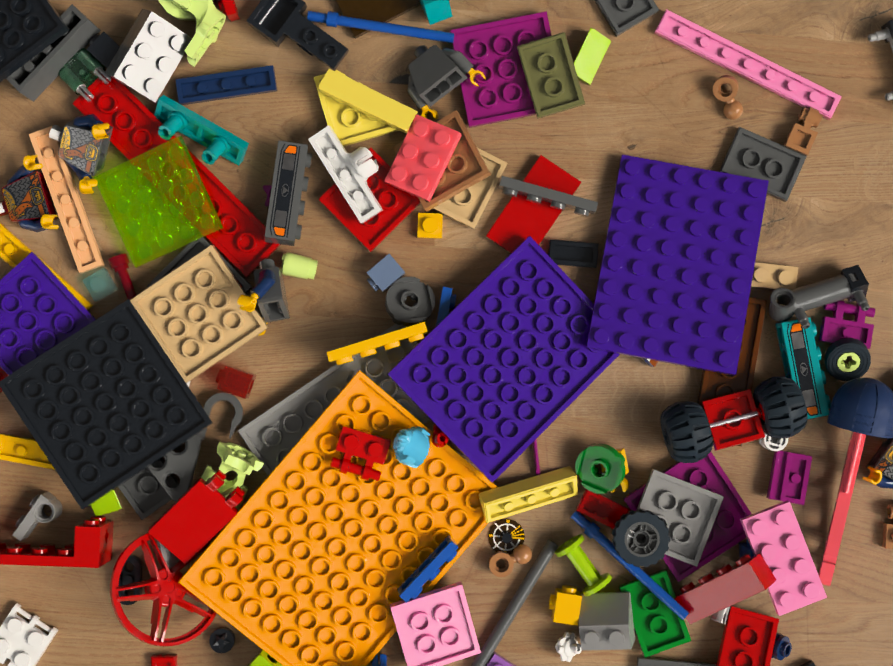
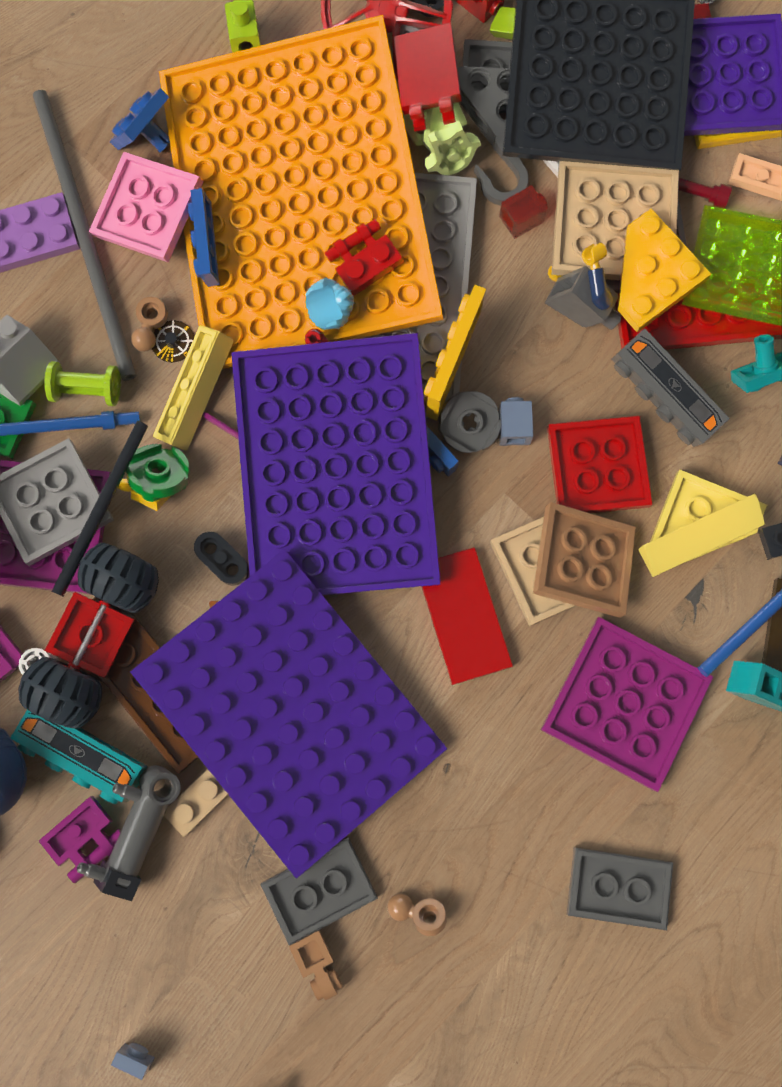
camera: 135 degrees right, 10 degrees down
(100, 284) = (712, 166): clear light blue plate -> none
(217, 260) = (655, 271): none -> yellow plate
(222, 640) = (298, 25): black tile -> none
(298, 266) = (587, 349): yellowish green piece -> none
(348, 172) = (645, 460): white plate -> none
(423, 157) = (602, 542): coral plate -> none
(430, 225) = (527, 502): yellow plate -> none
(436, 74) = (677, 623): dark grey torso -> none
(551, 75) = (587, 739): olive tile -> none
(557, 199) = (475, 627): dark grey plate -> none
(565, 605) = (61, 339): yellow brick -> none
(567, 646) = (23, 310): white plant -> none
(573, 253) = (387, 618): black tile -> none
(591, 56) = (575, 800): slope -> none
(601, 508) = (105, 449): red plate -> none
(620, 384) = (222, 558): none -> black plate
(652, 546) = (51, 431): black wheel -> none
(654, 479) = (99, 509): none -> black piece
(747, 64) = (434, 964): bright pink tile -> none
(839, 351) = (62, 804): black bush -> none

